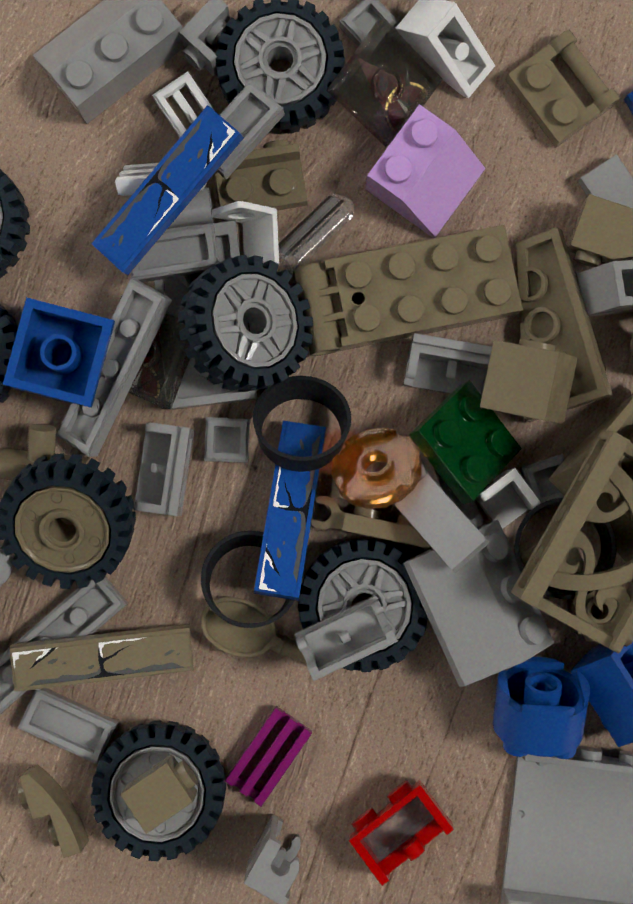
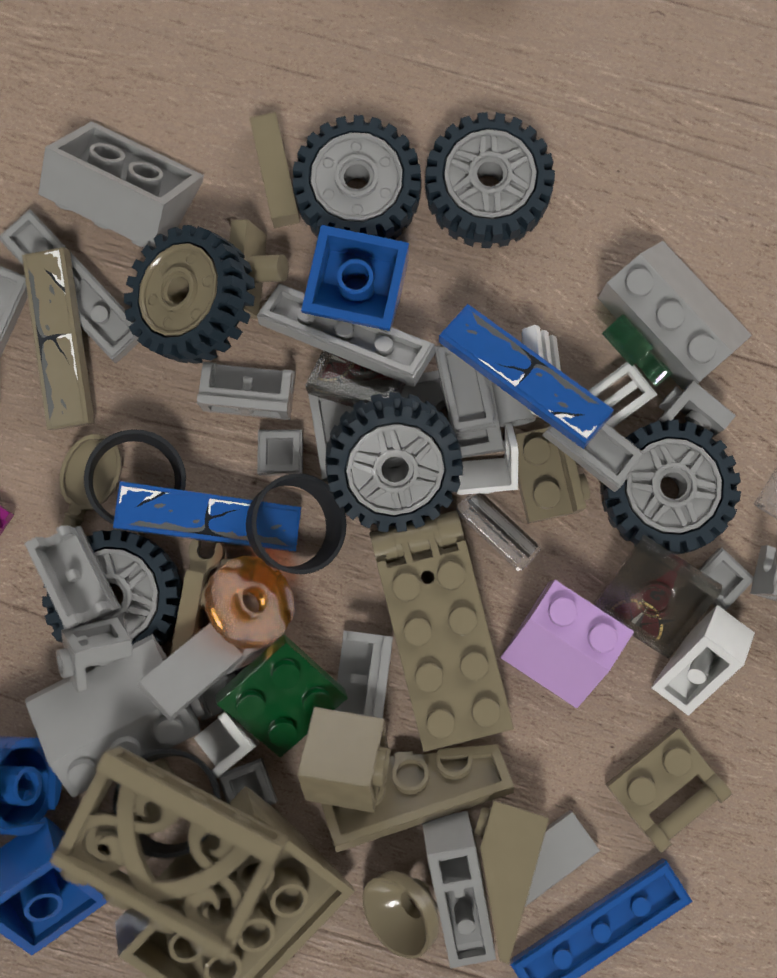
camera: 90 degrees right, 5 degrees down
(143, 85) = (636, 349): none -> clear green bar
(415, 619) = (91, 645): none -> light grey bracket

